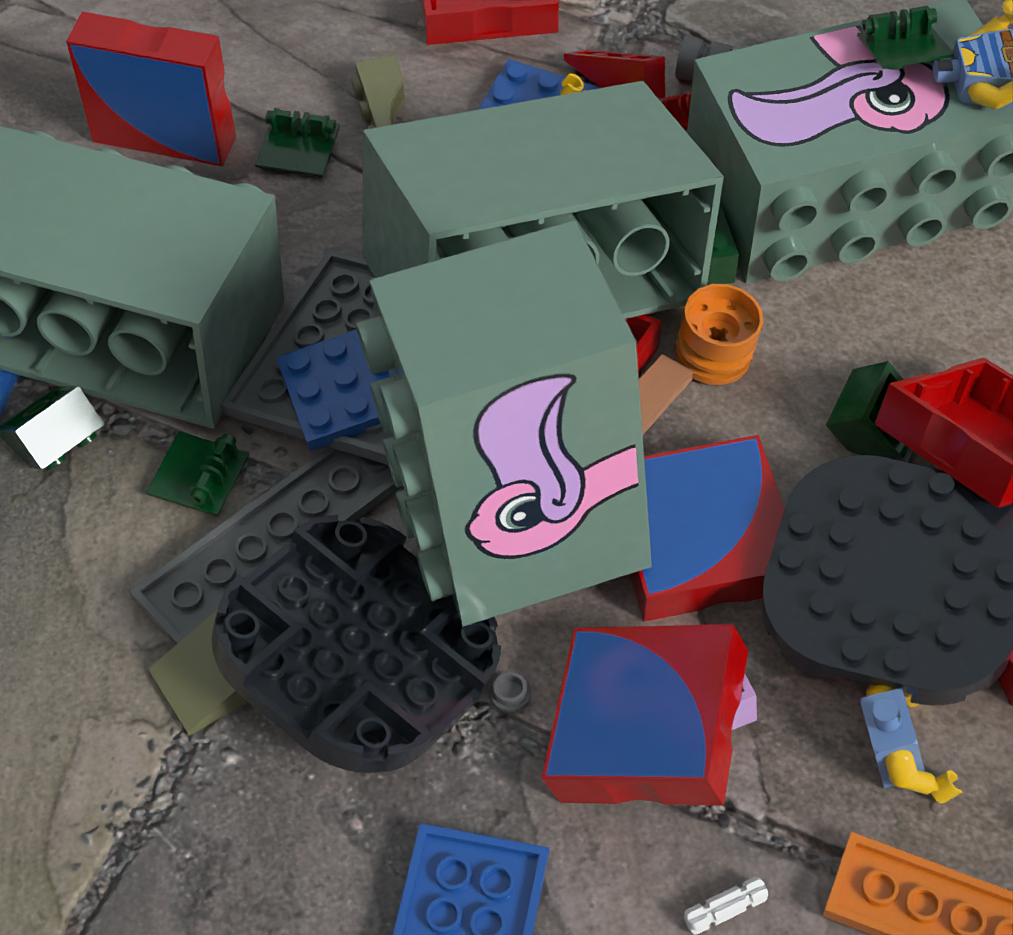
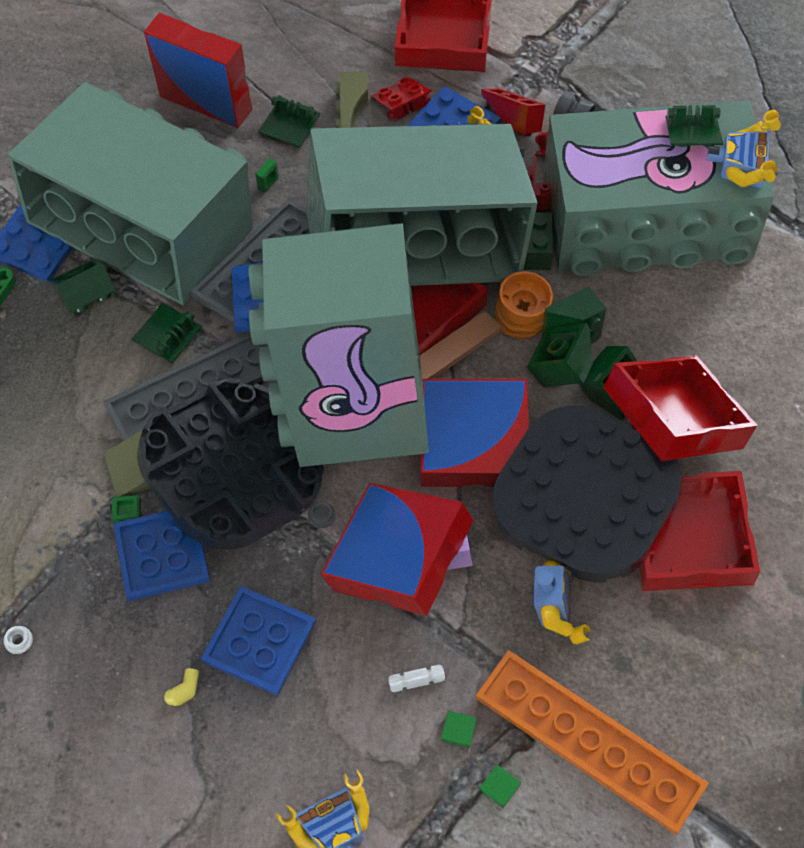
camera: 15 degrees right, 5 degrees up
(206, 747) = (125, 508): none -> green tile
(279, 805) = (158, 556): none -> blue plate
(289, 221) = (267, 175): none -> green tile
(454, 84) = (402, 98): none -> red hinge
(798, 393) = (562, 356): none -> dark green slope
(799, 340) = (577, 309): none -> dark green slope

